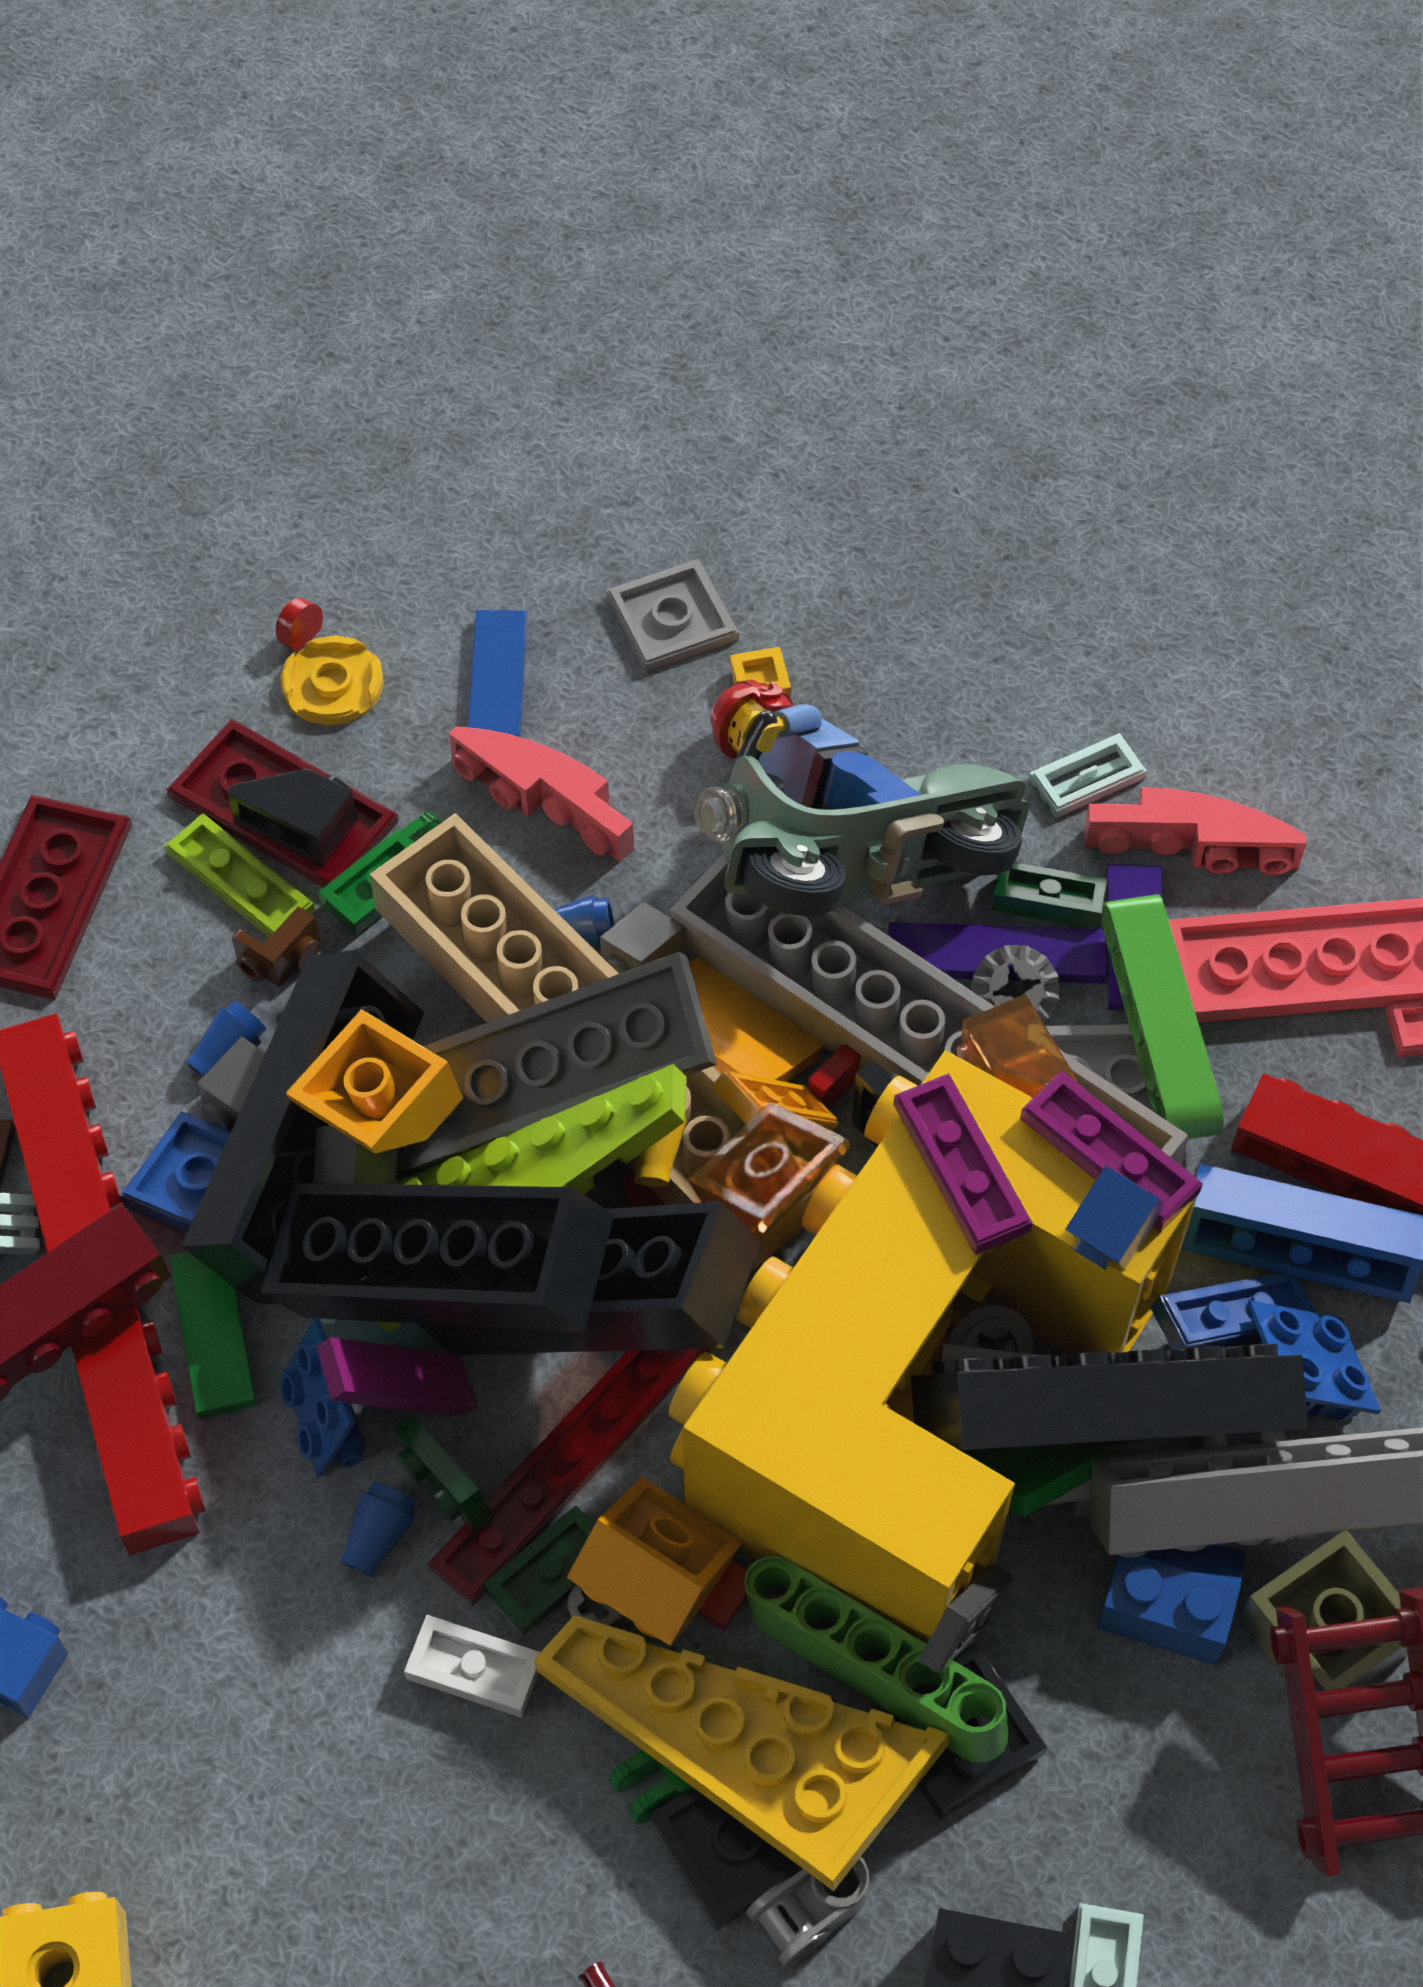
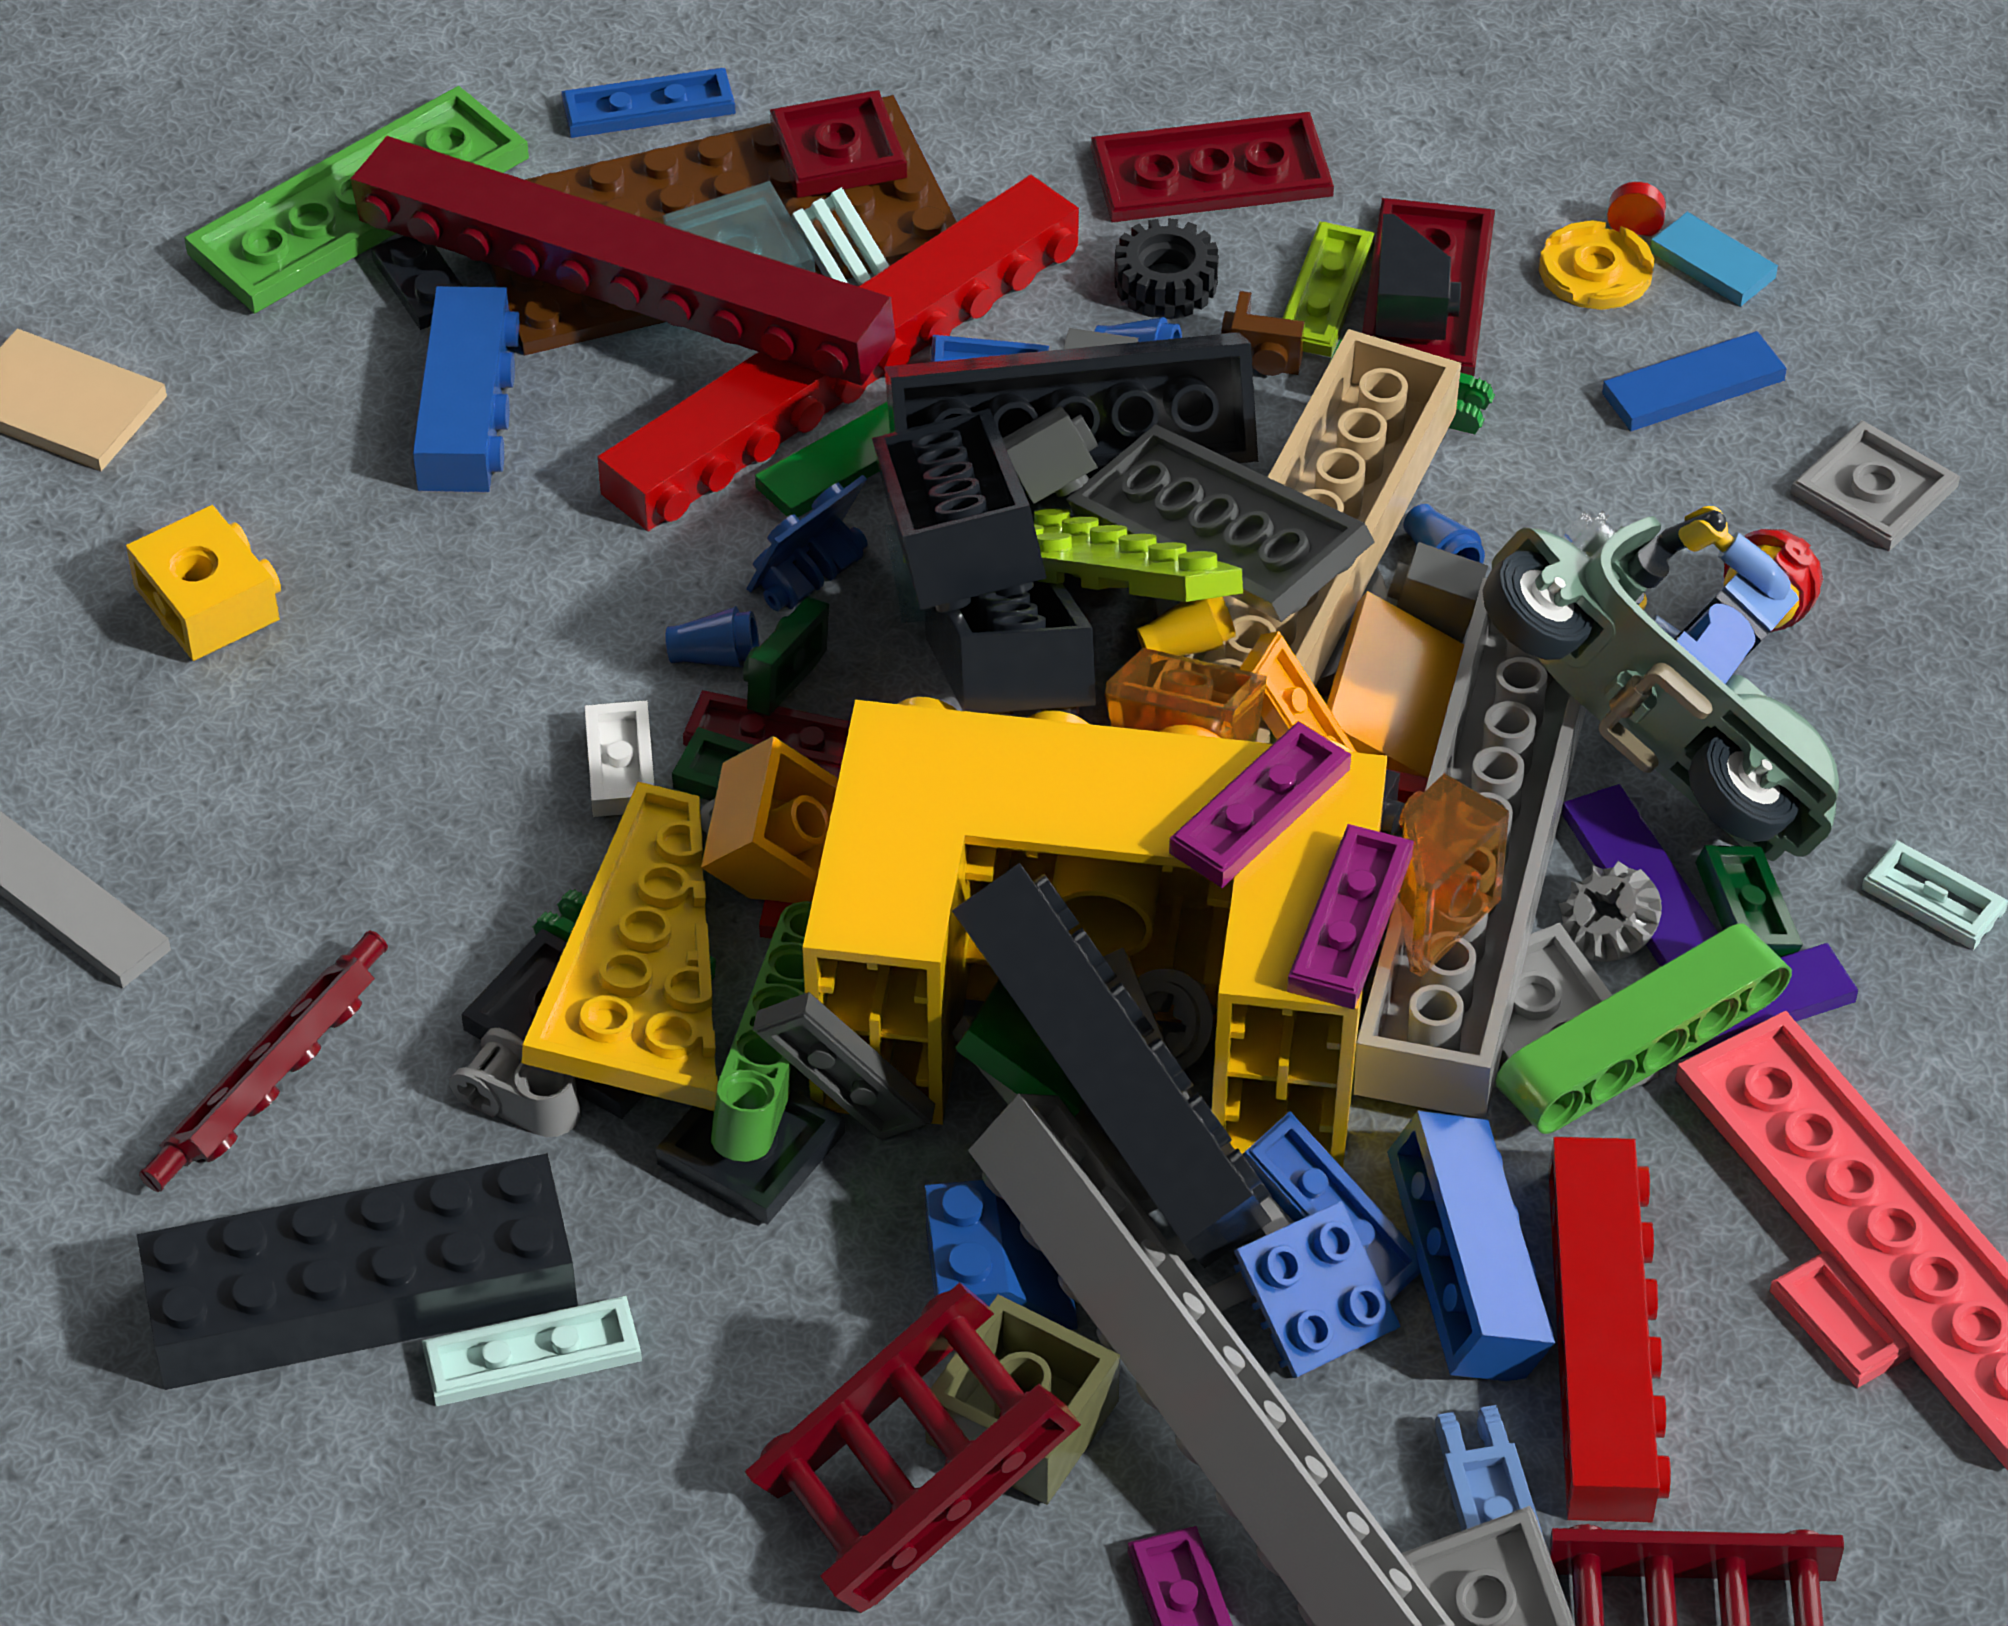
camera: 65 degrees right, 10 degrees down
(144, 955) = (1163, 290): none -> black tyre
(376, 600) = (1713, 258): none -> dark azure tile
(378, 1086) = (1108, 411): light orange slope -> none
(395, 1377) = (852, 573): magenta tile -> none
(534, 775) = (1581, 446): coral slope -> none
(761, 666) = (1851, 576): yellow plate -> none
(1113, 1219) = (1258, 922): blue brick -> none
(1214, 829) = (1930, 1006): coral slope -> none

